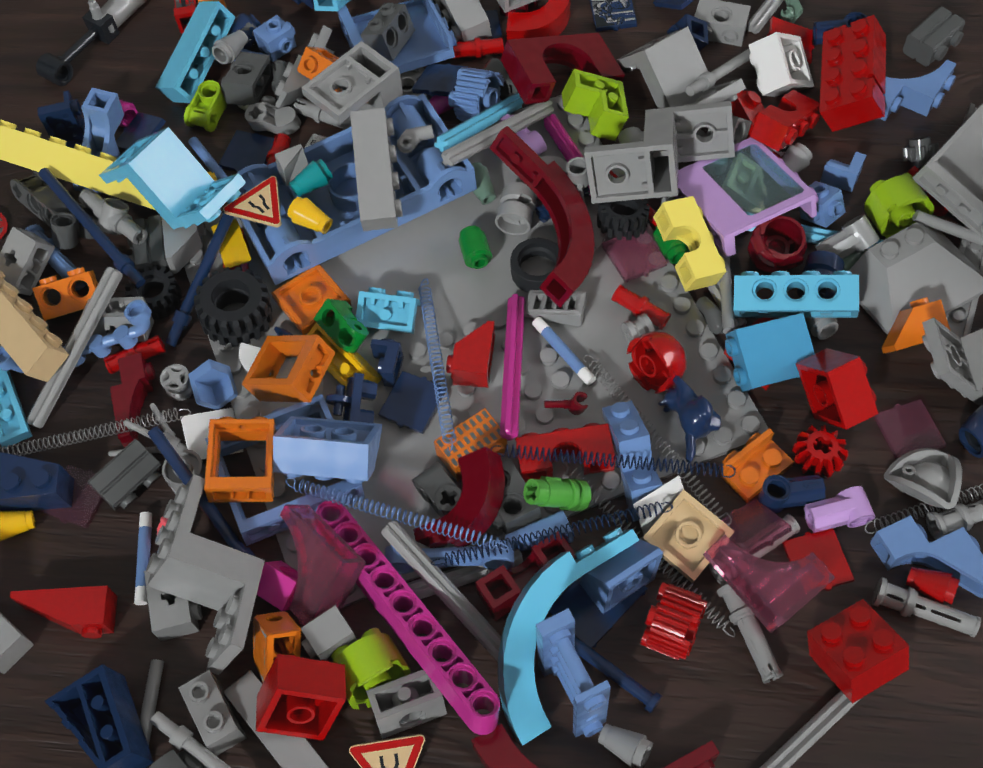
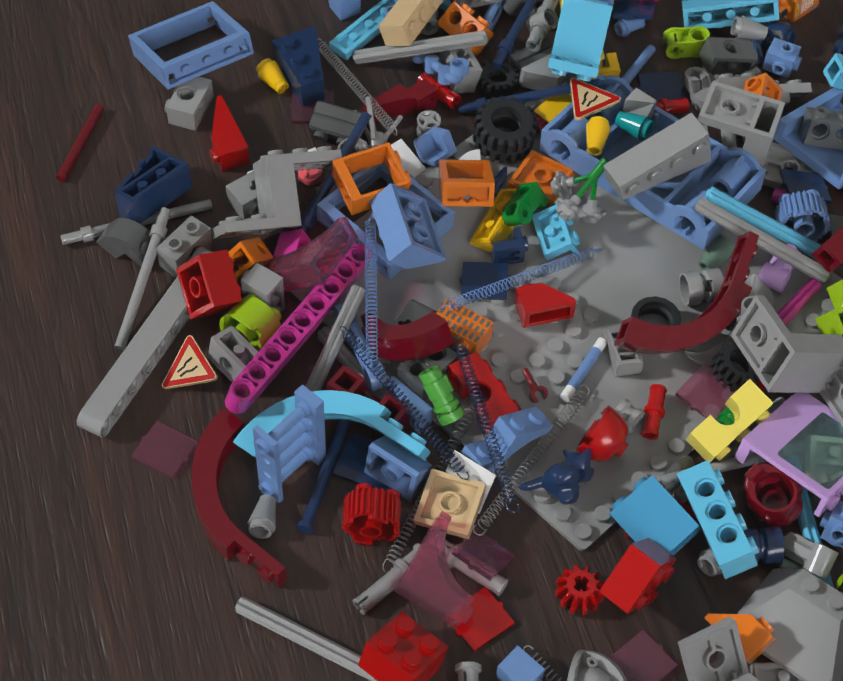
camera: 60 degrees right, 5 degrees down
(356, 389) = (472, 235): dark blue hips -> none
(376, 270) = (567, 206): none -> light grey plant
(411, 138) = (712, 175): light grey arm -> none
(474, 247) = (648, 271): green brick -> none
(512, 368) = (544, 331): dark pink axle -> none
(755, 464) = (545, 544): orange bracket -> none
(792, 491) = (530, 578): dark blue piece -> none
(846, 508) = (534, 626): lavender piece -> none

